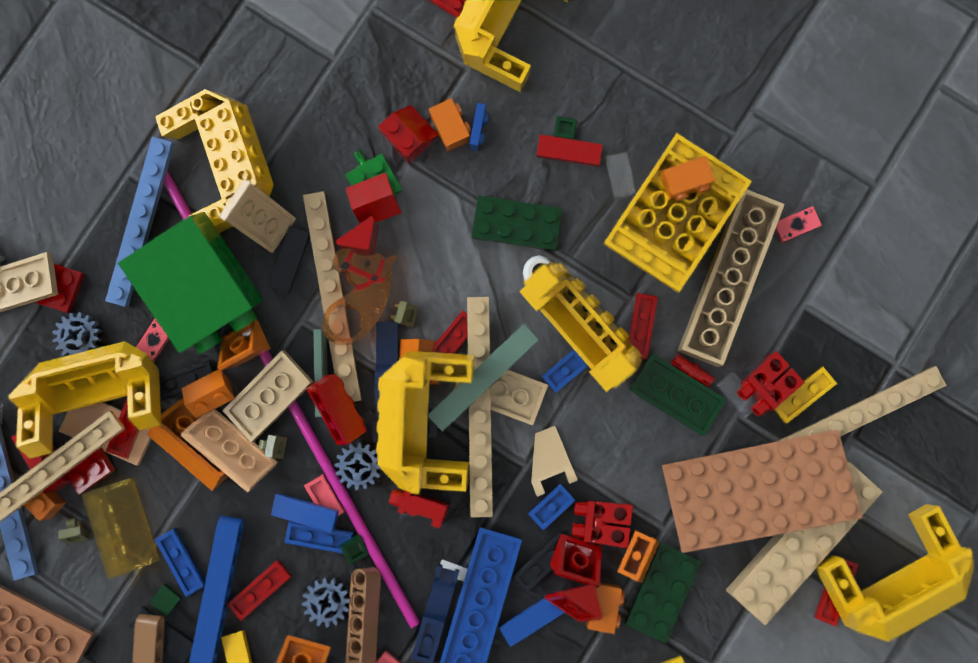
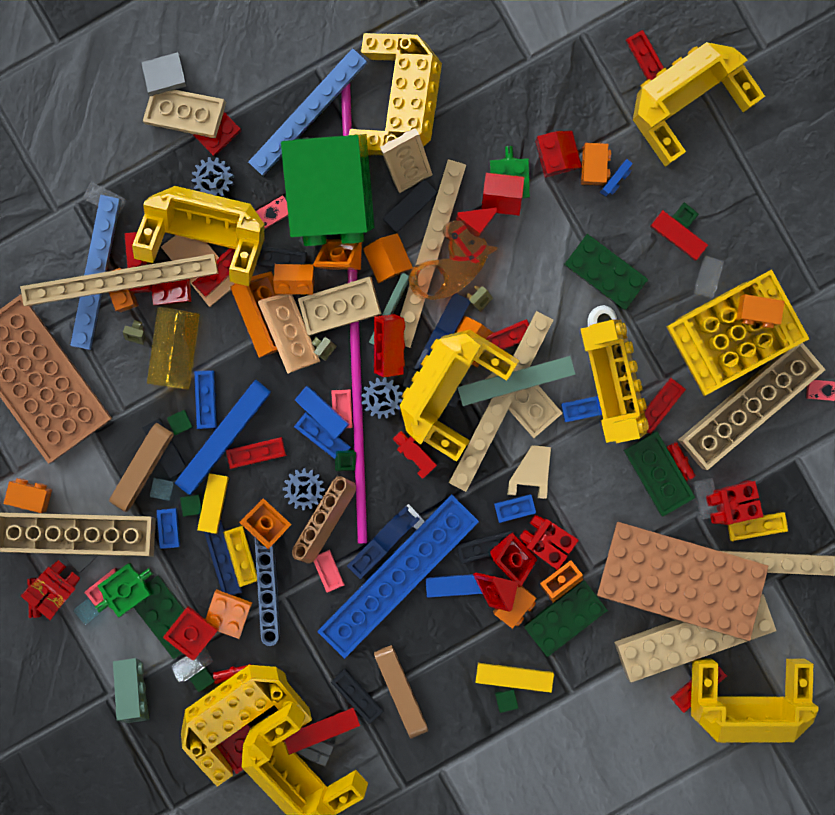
camera: 25 degrees right, 5 degrees up
(292, 322) = (387, 257): none -> orange slope

